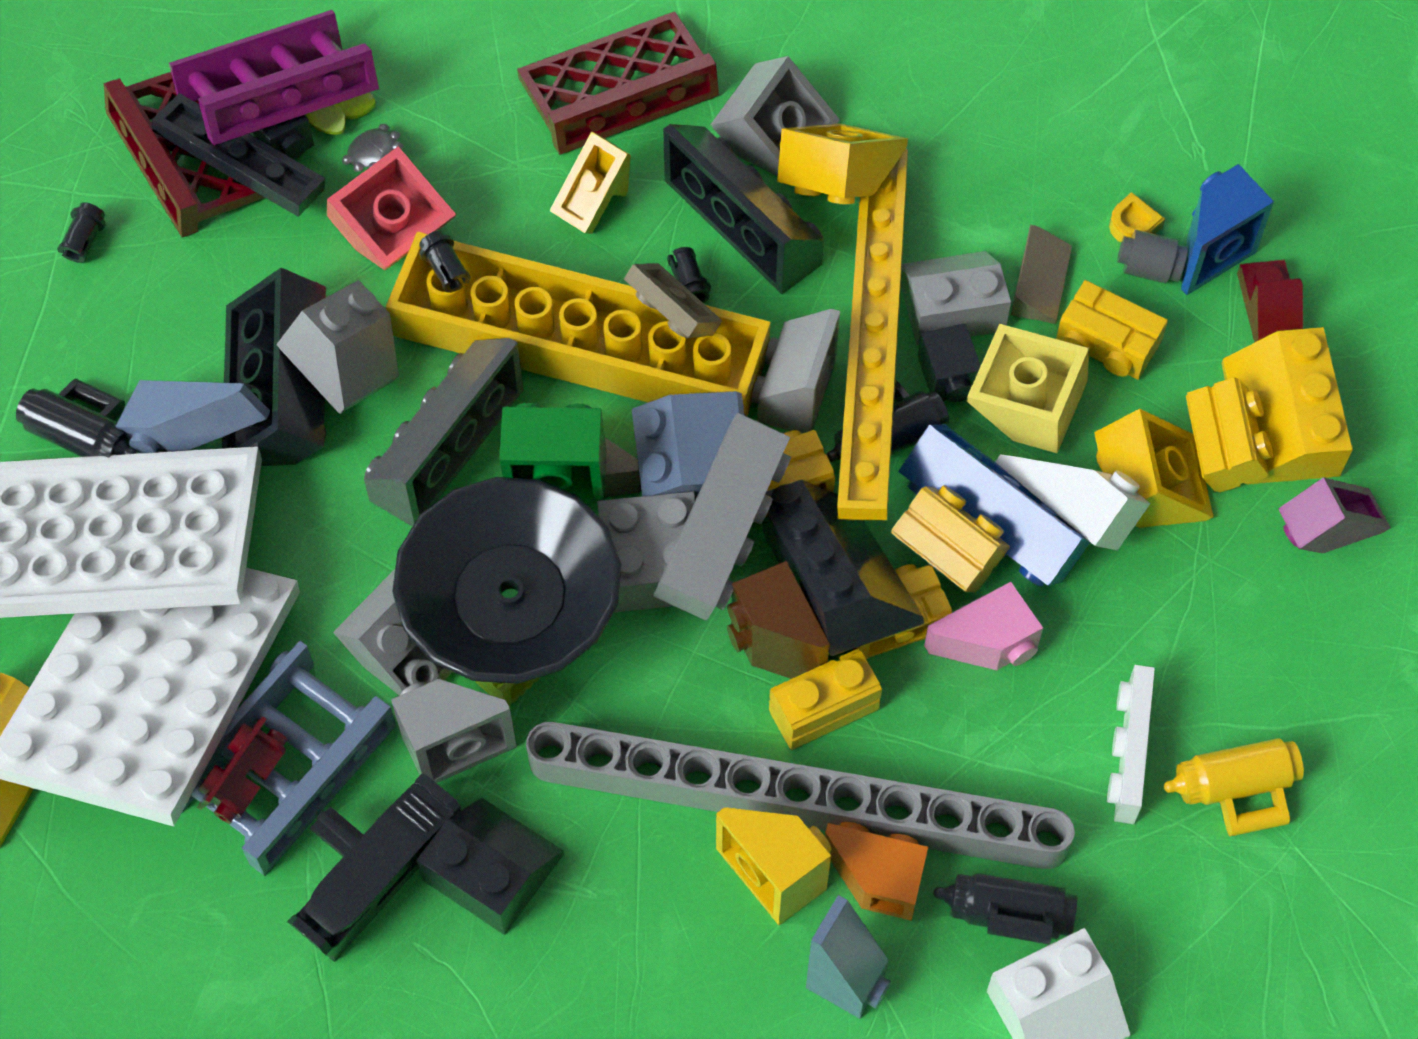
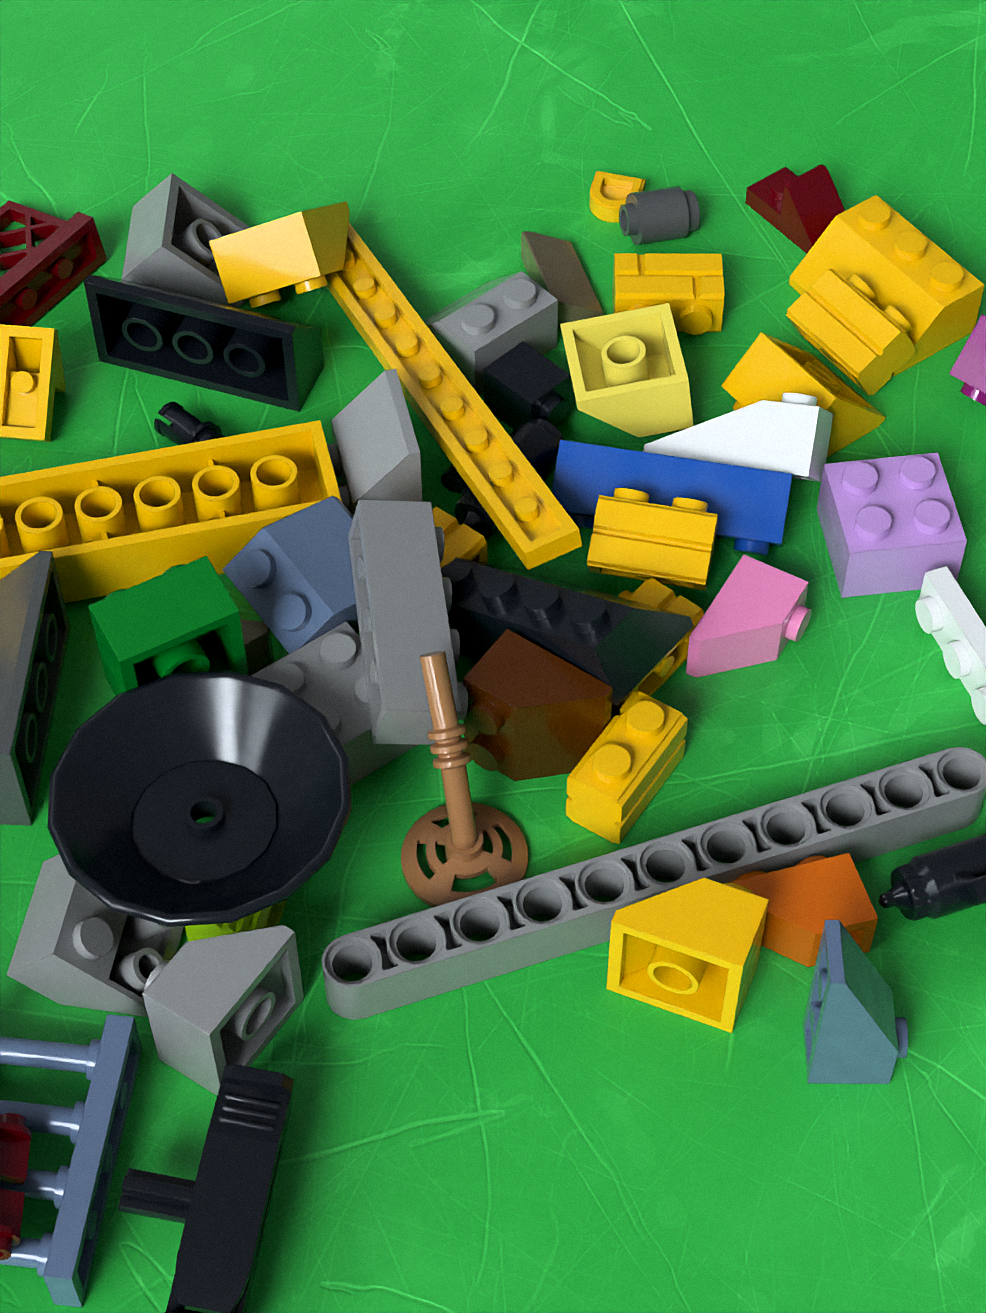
camera: 30 degrees left, 10 degrees down
(488, 863) = (358, 1143): black slope -> none
(673, 300) = (179, 435): dark tan plate -> none
(681, 686) = (463, 834): none -> medium nougat dish
(1144, 609) = (889, 523): none -> lavender brick
(1224, 226) = (714, 150): blue slope -> none

